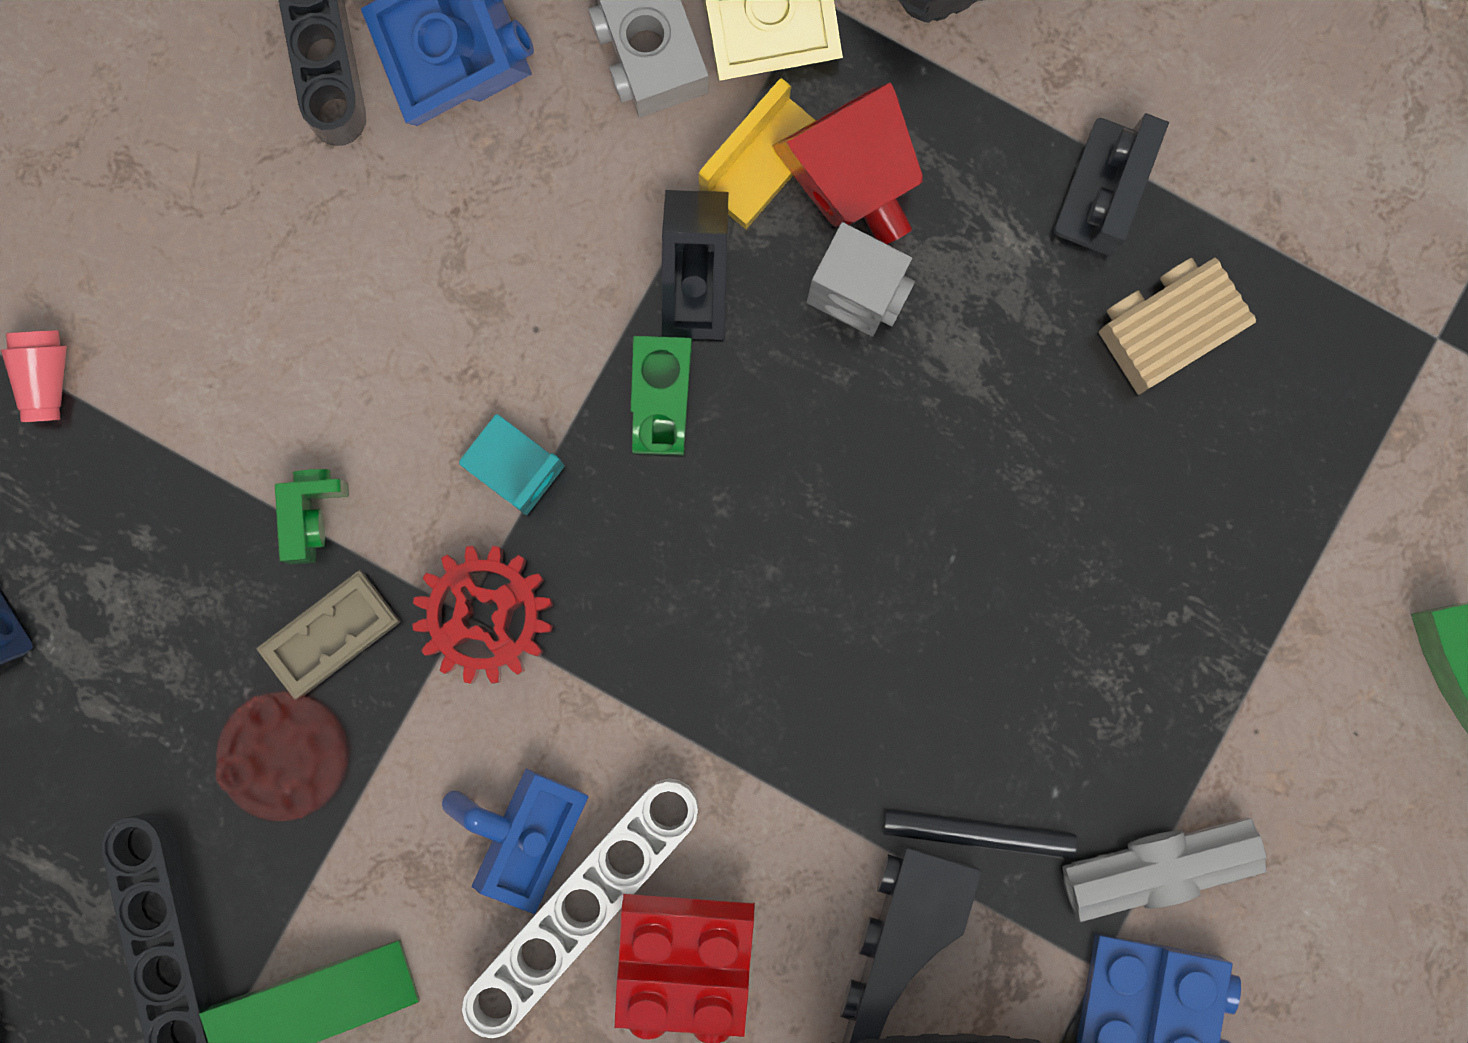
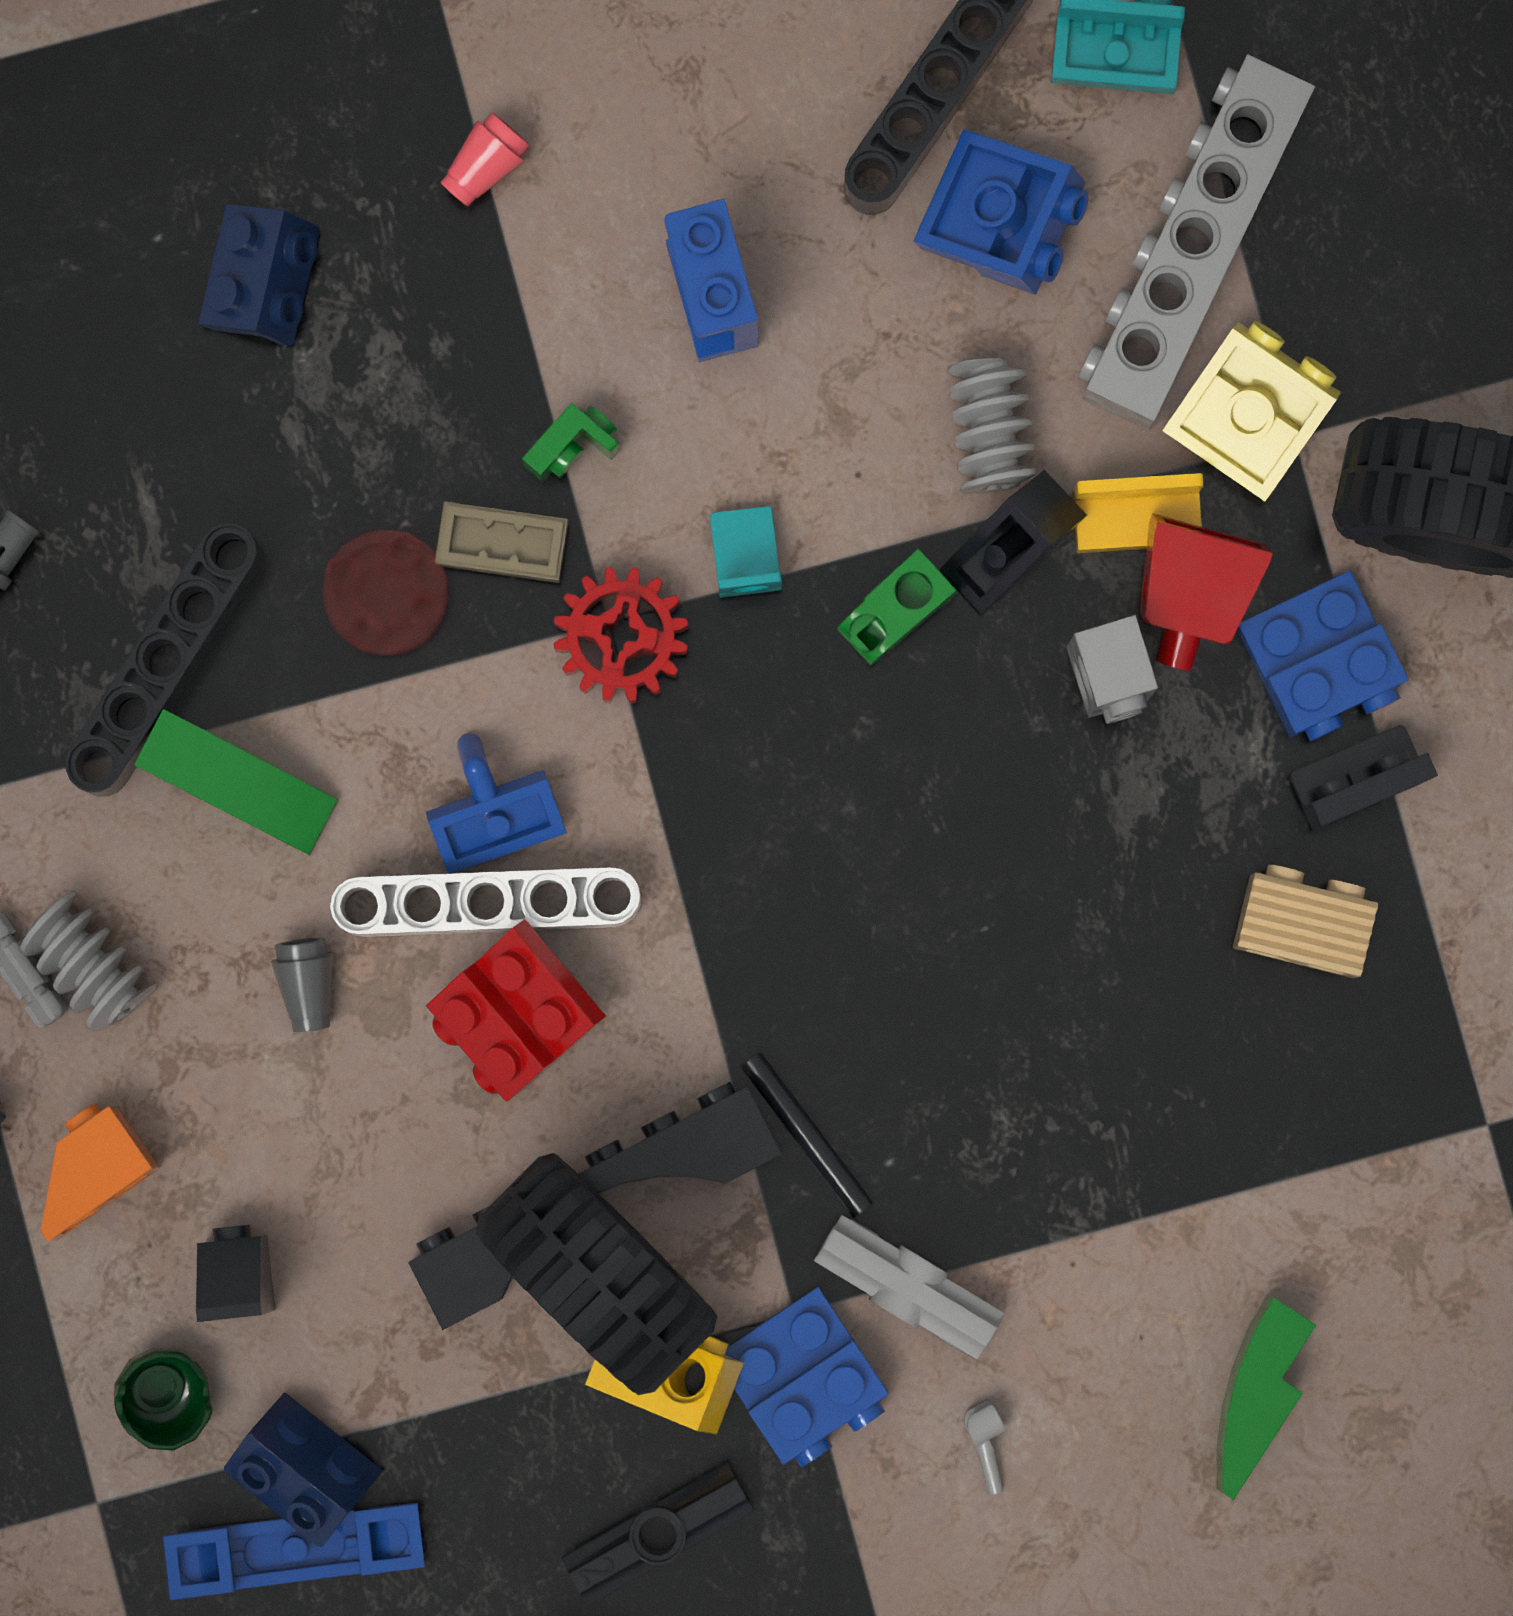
camera: 55 degrees right, 0 degrees up
(285, 291) = (711, 280): none -> blue panel
(593, 197) = (990, 424): none -> light grey piece
(995, 127) = (1323, 657): none -> blue plate
(1315, 913) = (982, 1425): none -> light grey hand

